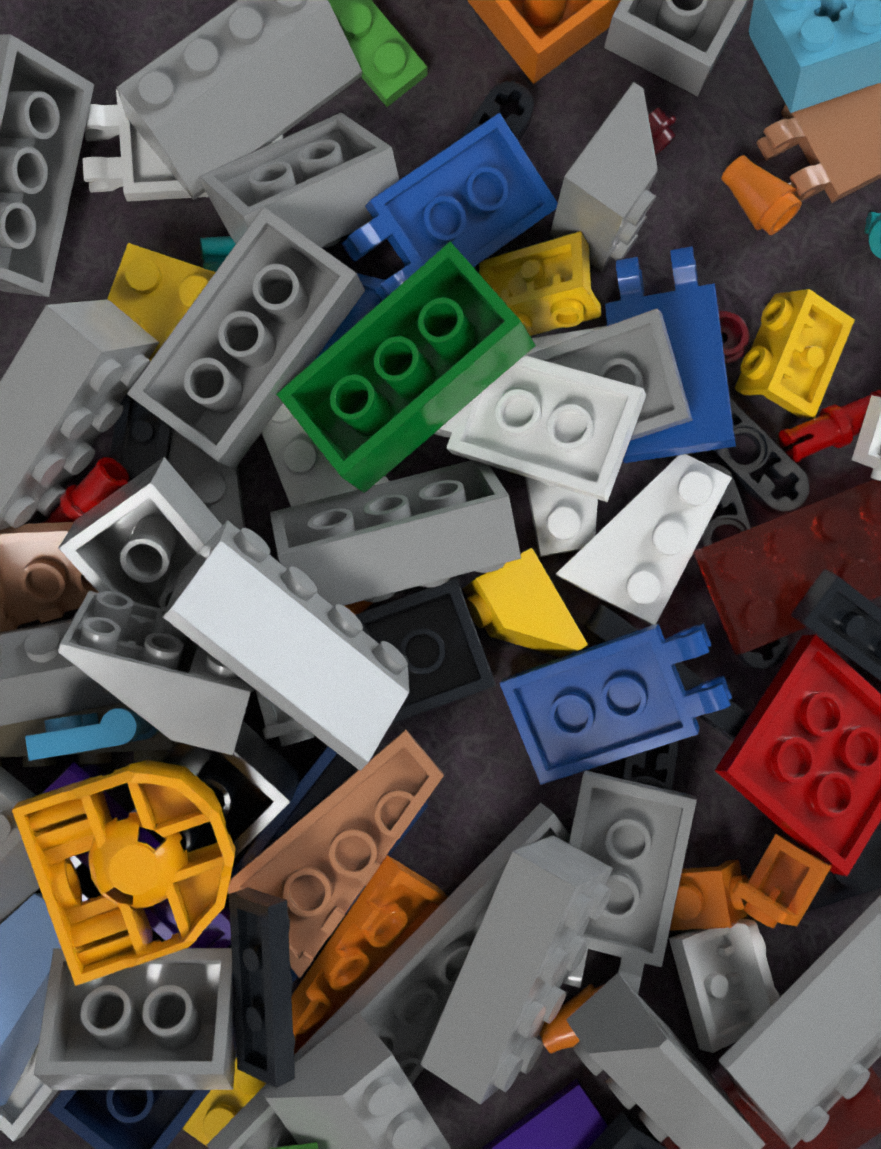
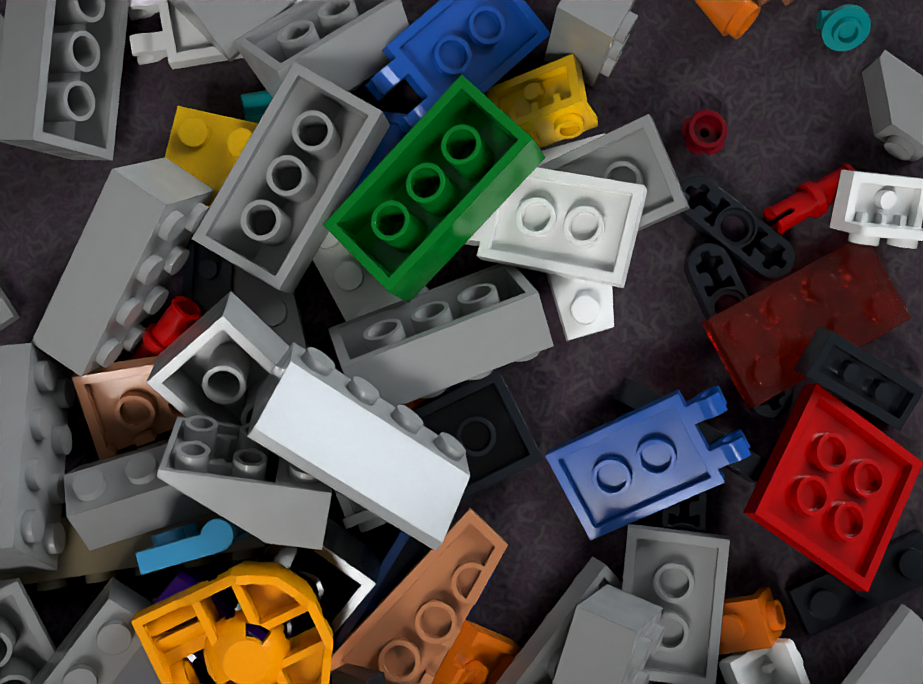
camera: 10 degrees left, 0 degrees up
(523, 608) = (559, 388): yellow slope -> none
(649, 541) = (663, 317): white wing -> none
(697, 345) = (686, 143): blue tile -> none
(782, 884) = (812, 604): orange bracket -> none
(795, 351) = (769, 138): yellow bracket -> none

